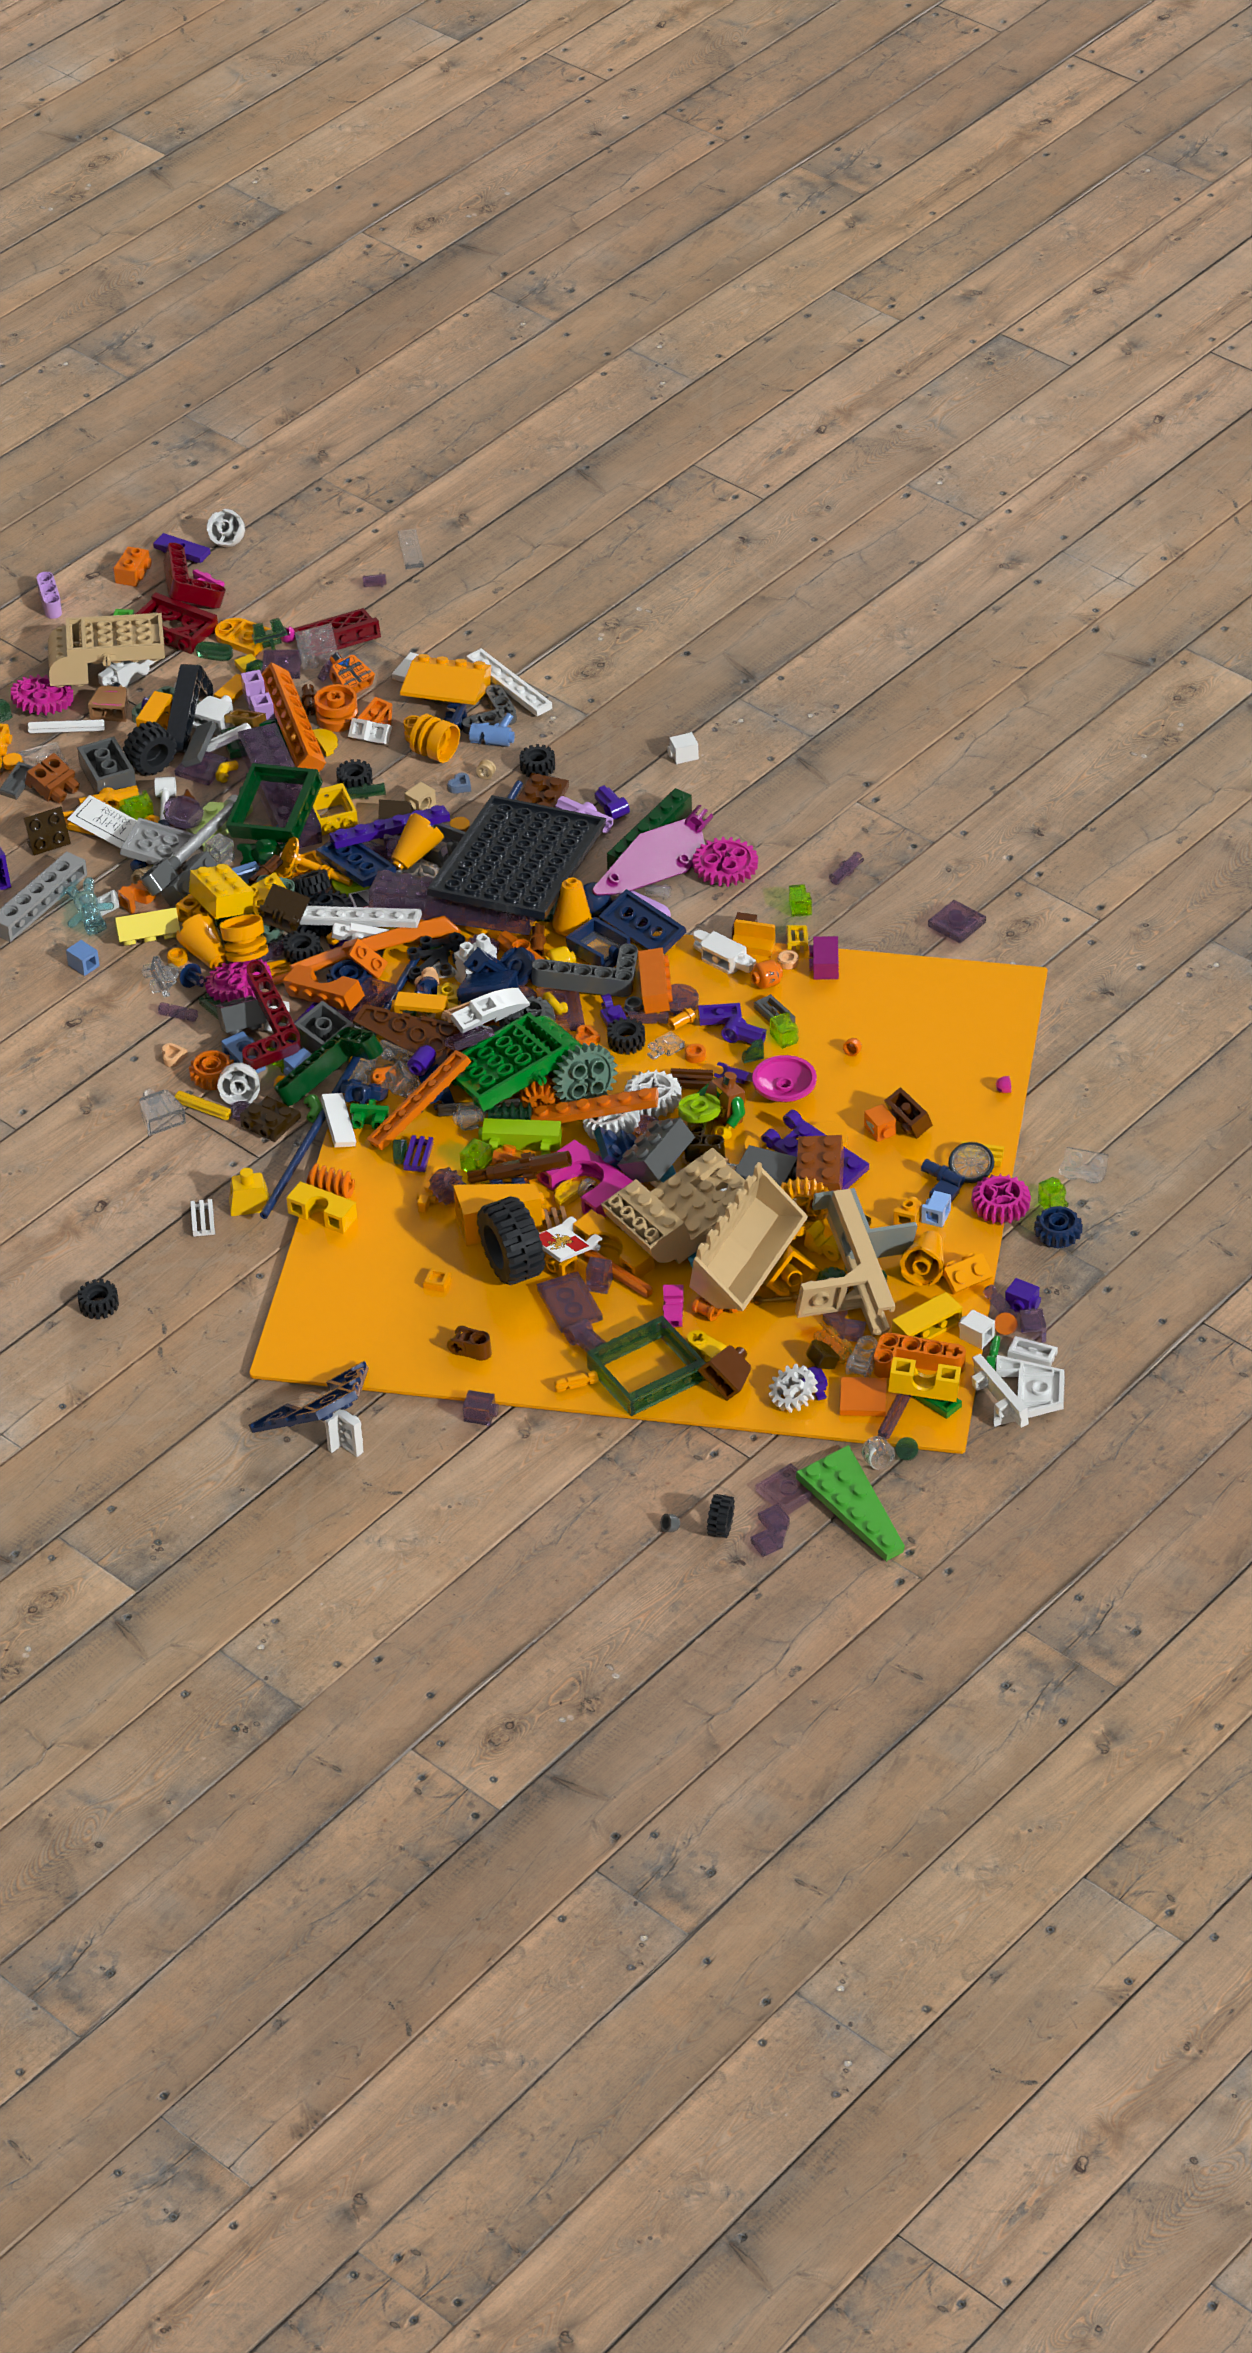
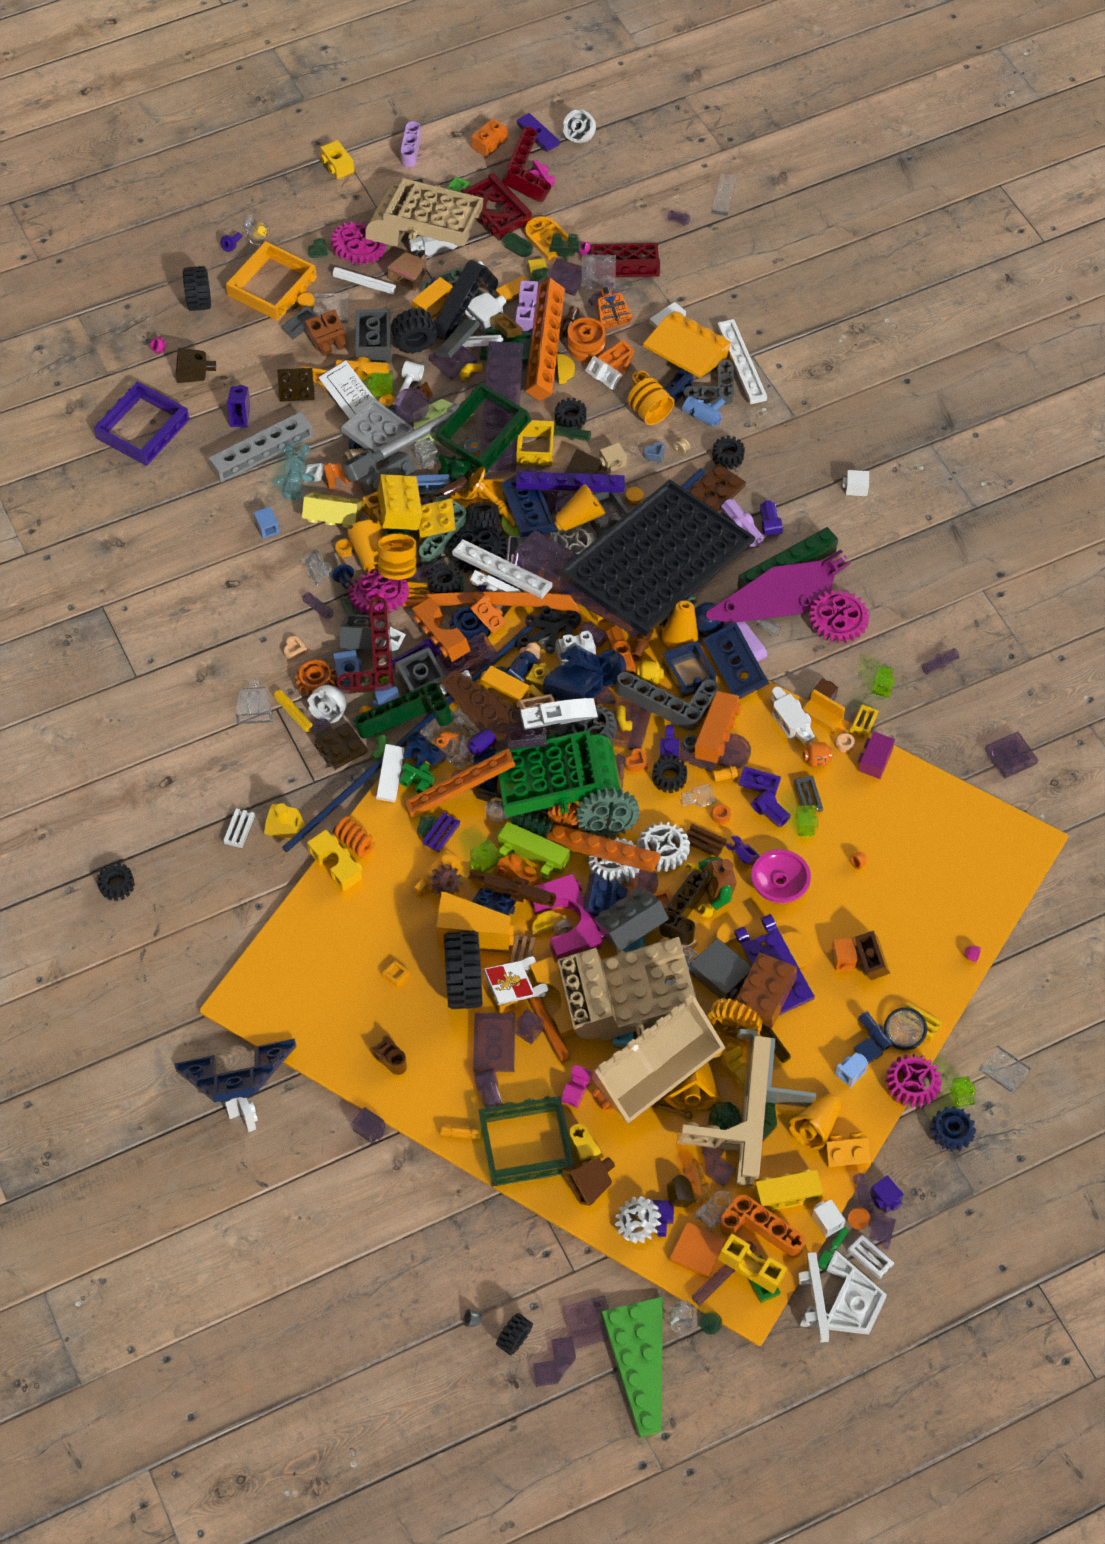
camera: 20 degrees right, 15 degrees up
(283, 908) = (441, 538): dark brown hinge -> none
(699, 1108) = (690, 883): lime tile -> none
(754, 1052) = (770, 834): clear green tile -> none
(909, 1208) = (822, 1068): light orange brick -> none

